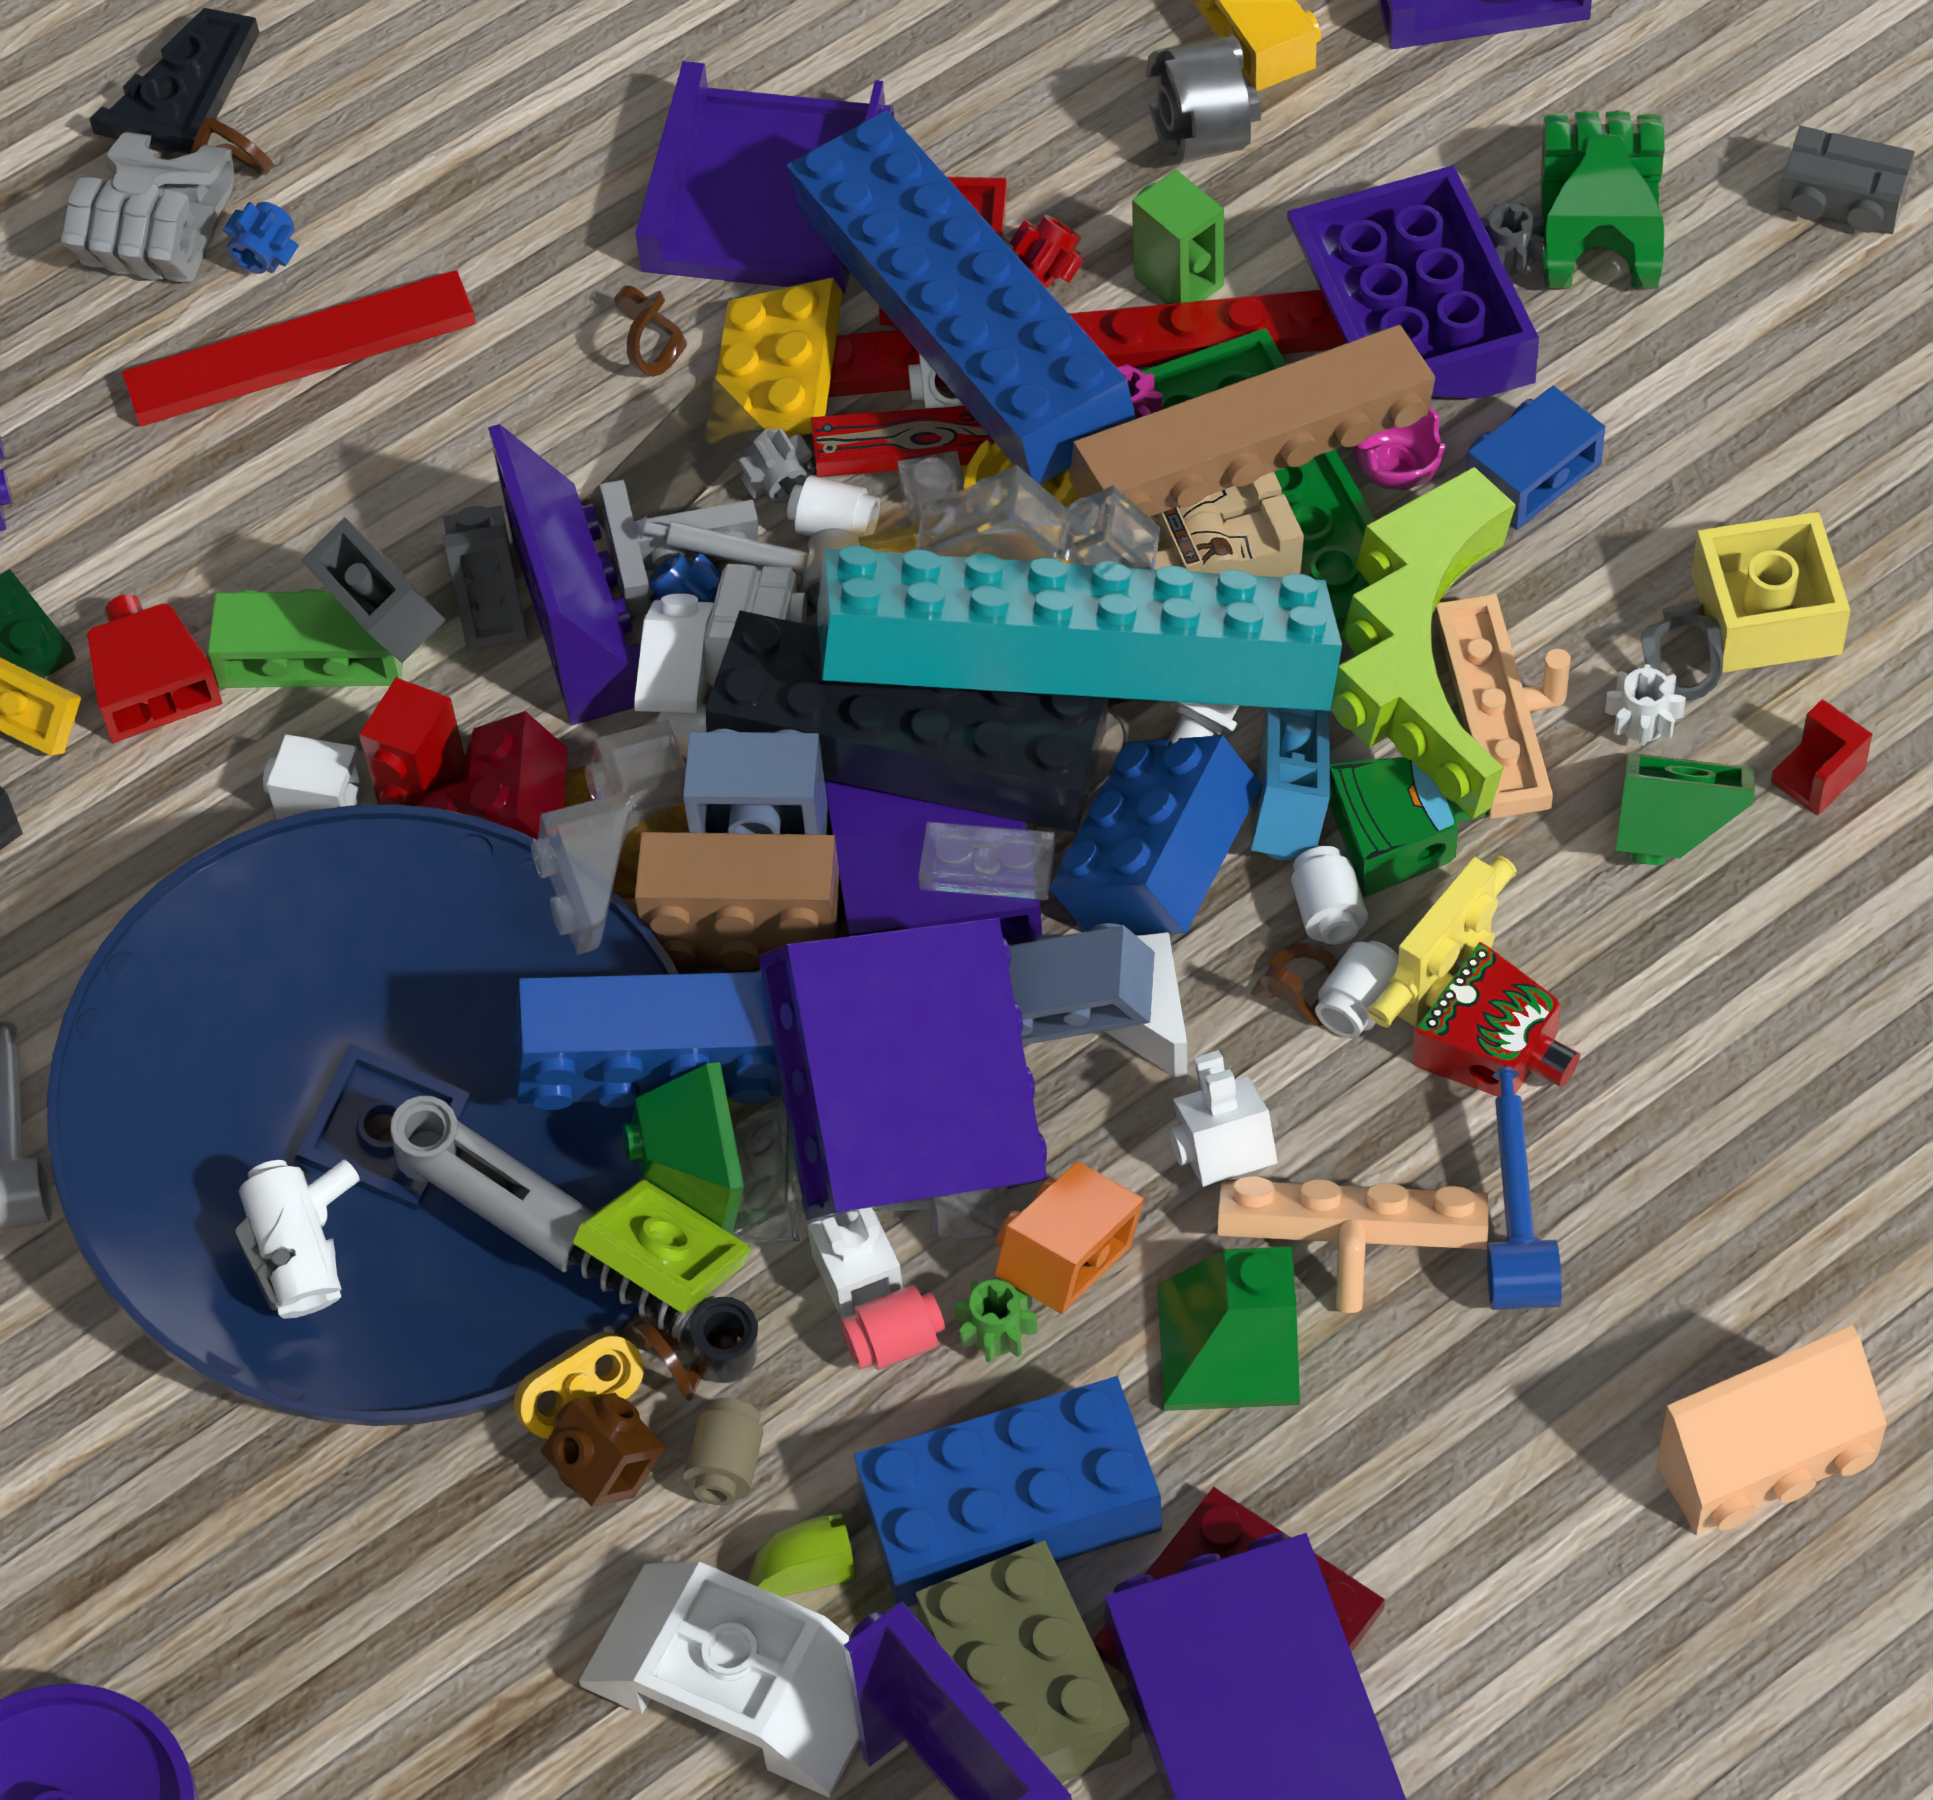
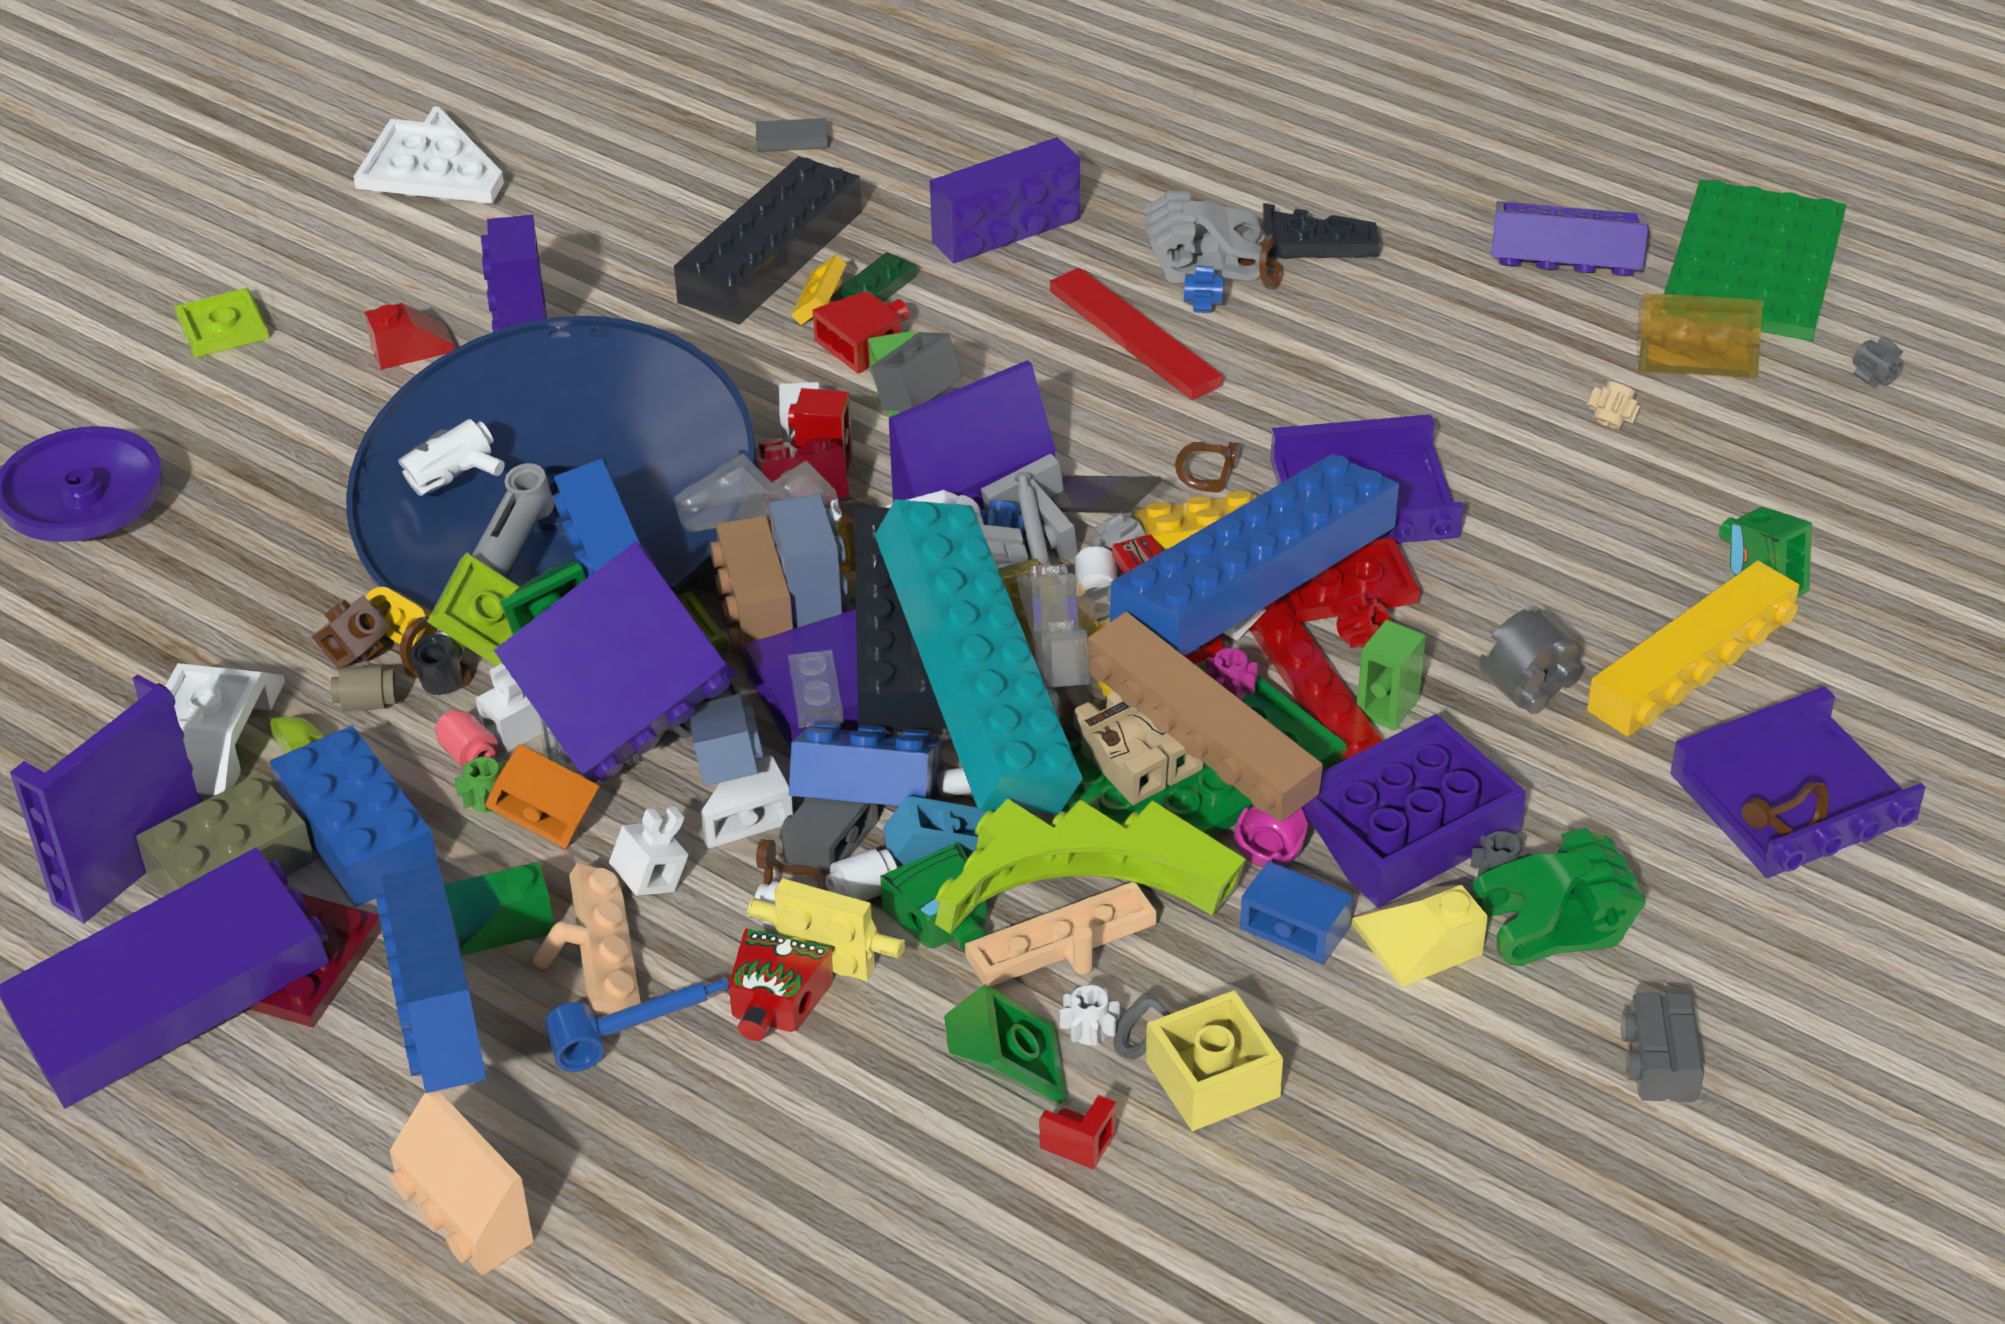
camera: 70 degrees right, 15 degrees down
(1238, 926) = (826, 832): none -> dark grey brick
(1460, 1384) = (429, 980): none -> blue brick
(1598, 340) = (1424, 932): none -> light yellow slope

